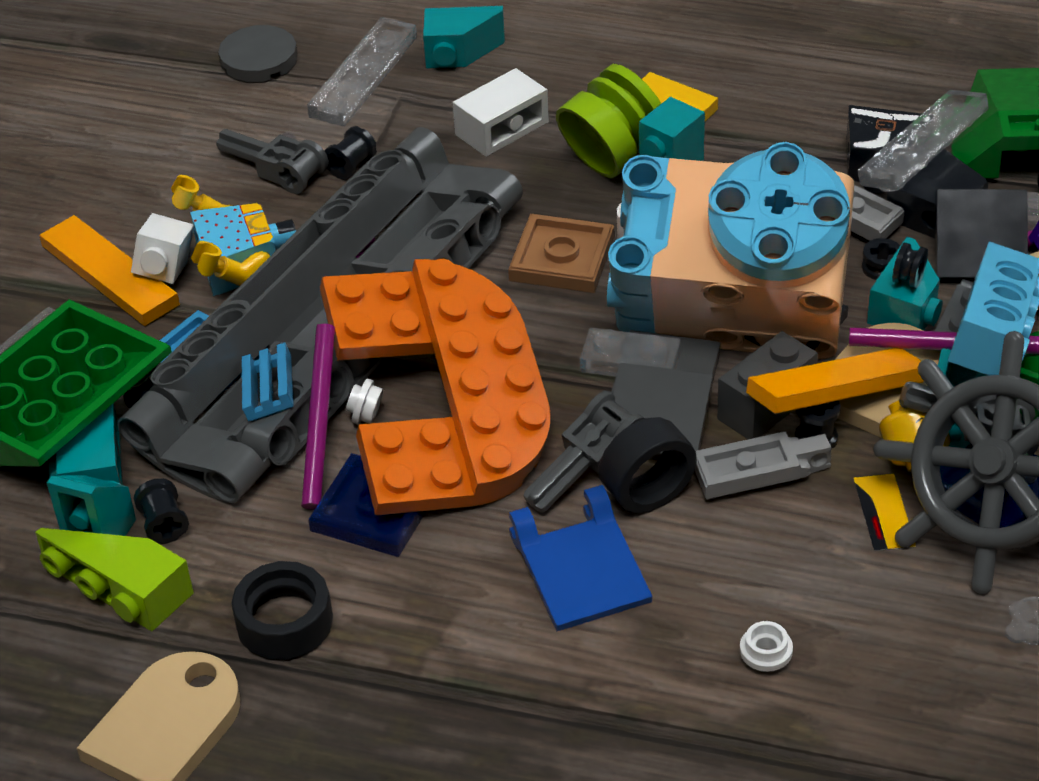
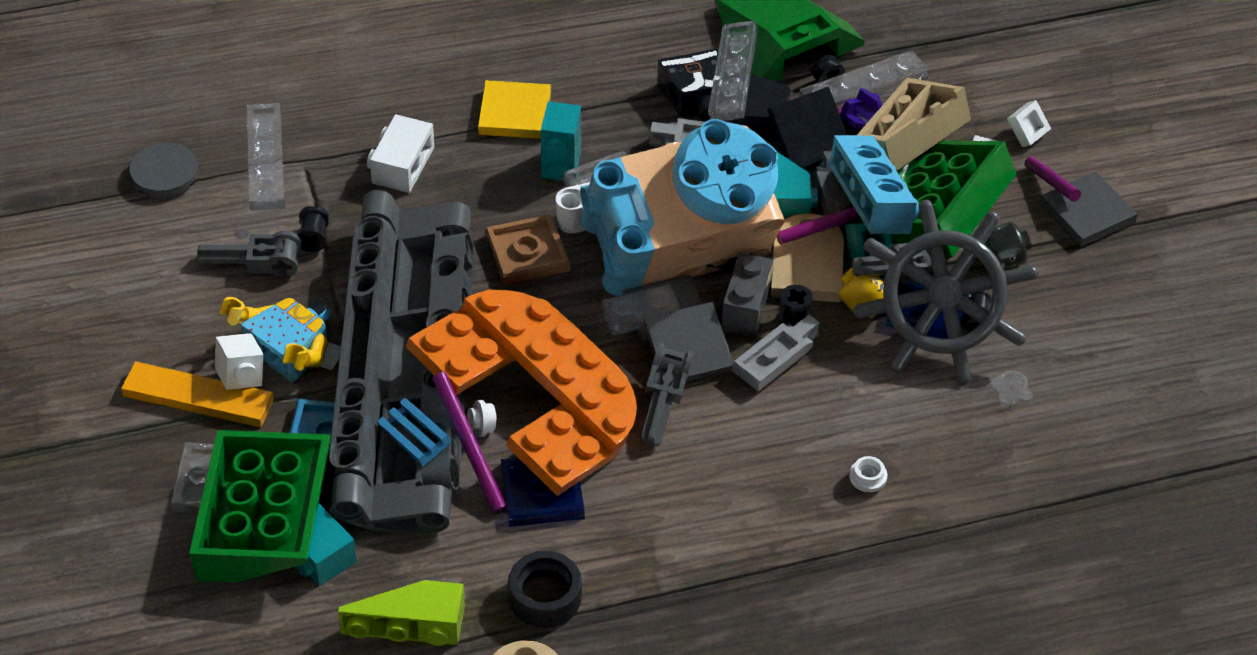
camera: 35 degrees left, 5 degrees up
(91, 504) = (360, 575): teal slope -> none
(158, 504) = (402, 558): black bush -> none
(461, 34) = (318, 100): teal slope -> none
(583, 567) = (711, 469): blue flag -> none
(606, 118) = (504, 133): lime wheel -> none
(635, 447) = (717, 383): black tyre -> none
(834, 380) = (798, 273): light orange tile -> none
(882, 509) = (869, 351): yellow sticker -> none
(910, 265) = (792, 171): black bush -> none

